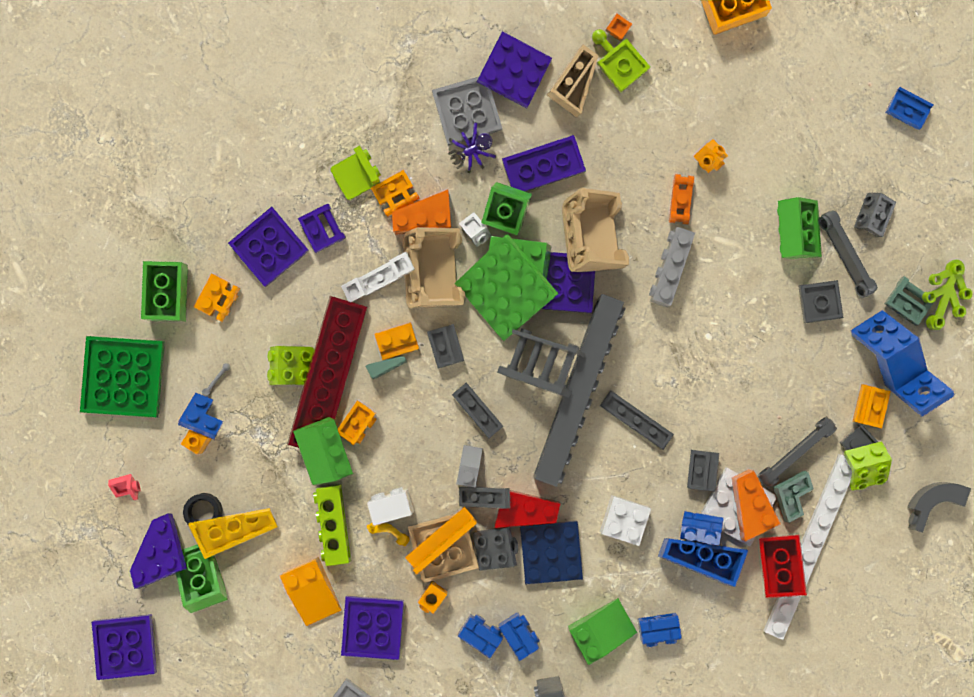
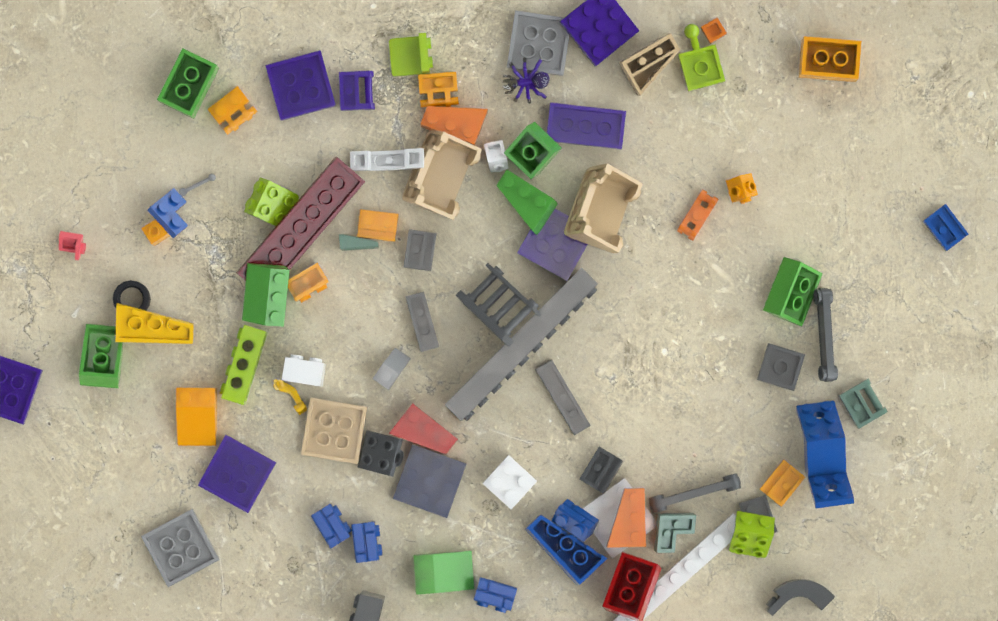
camera: 20 degrees right, 0 degrees up
(122, 376) = (114, 143): green plate -> none
(158, 554) = (75, 318): dark purple plate -> none
(438, 591) = (309, 465): light orange brick -> none
(441, 540) = (335, 422): light orange fence -> none
(484, 497) = (392, 402): dark grey plate -> none
(506, 287) = (498, 222): bright green plate -> none
(672, 267) = (659, 273): light grey brick -> none
(875, 213) = (868, 310): dark grey bracket -> none
(954, 271) = (901, 411): lime plant -> none

